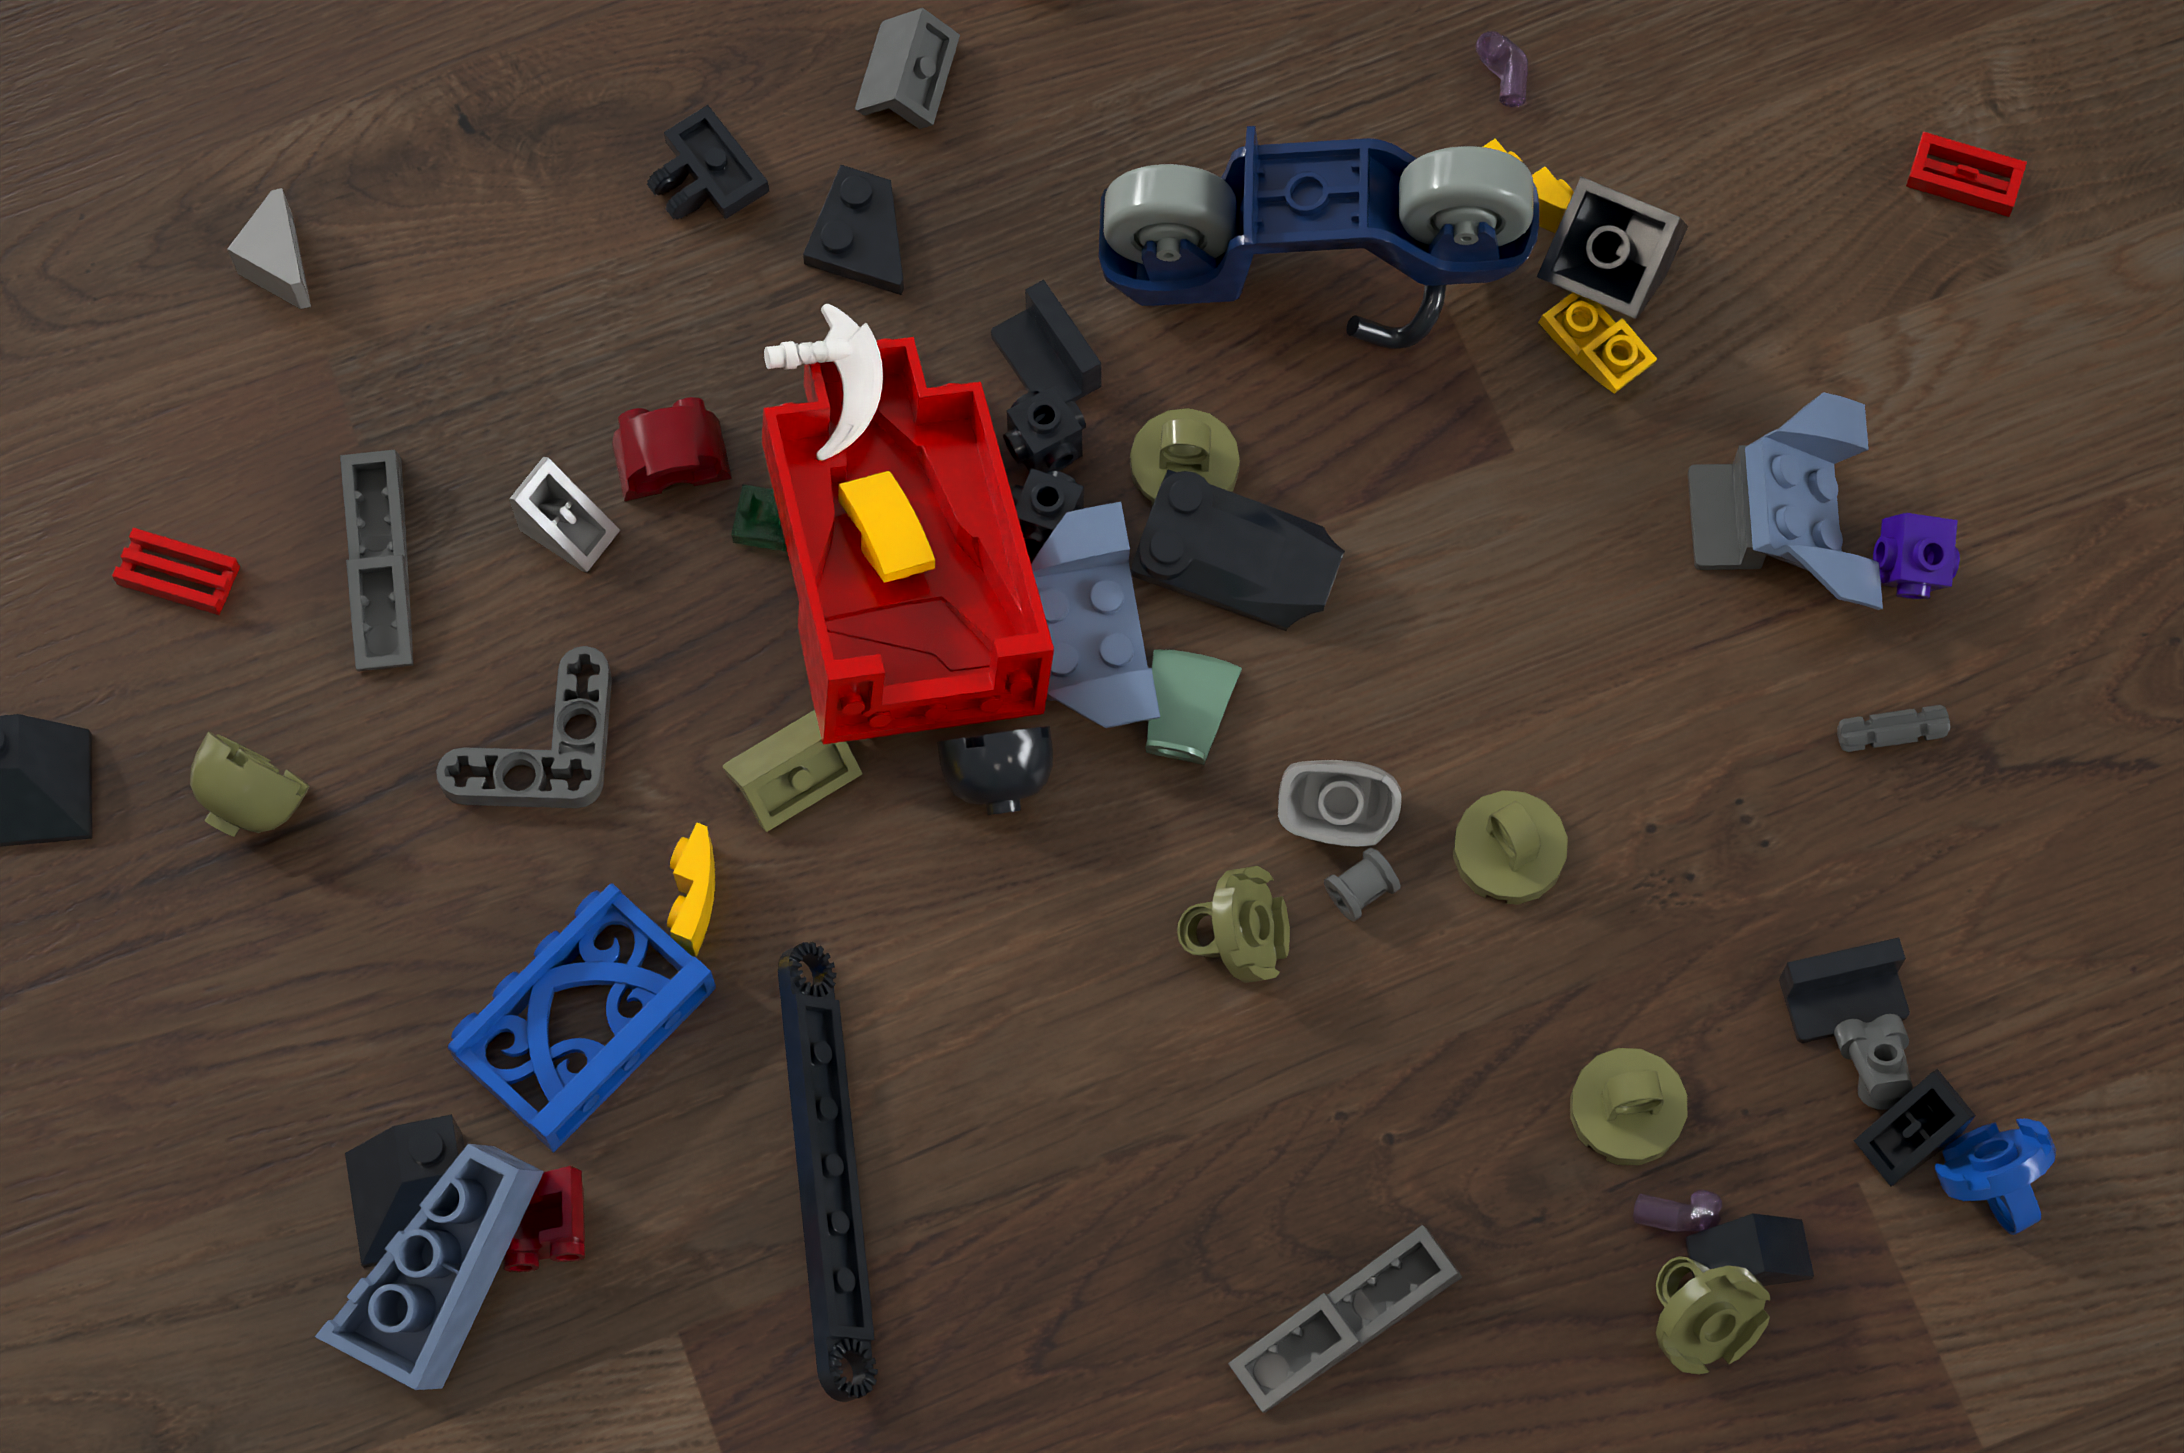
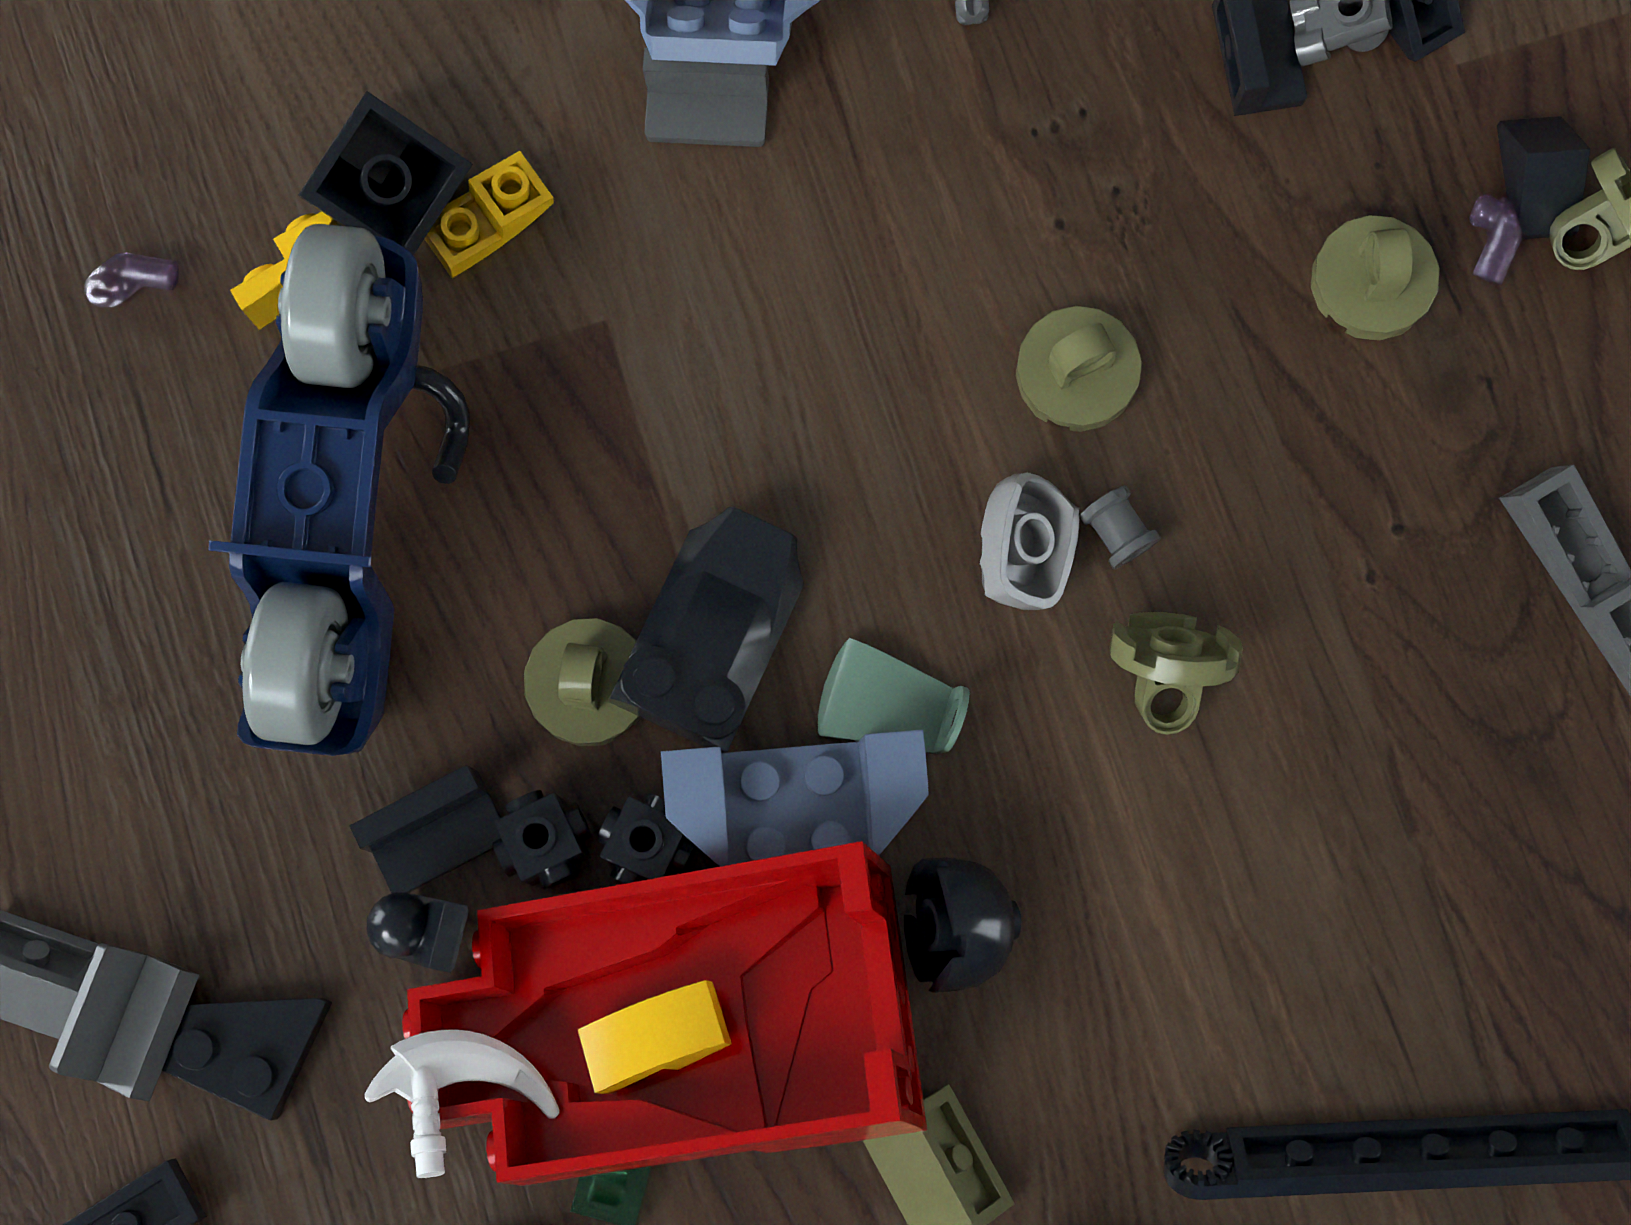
camera: 80 degrees left, 10 degrees up
(876, 136) = (124, 1021): none -> dark grey panel
(962, 330) = (417, 929): none -> black tile

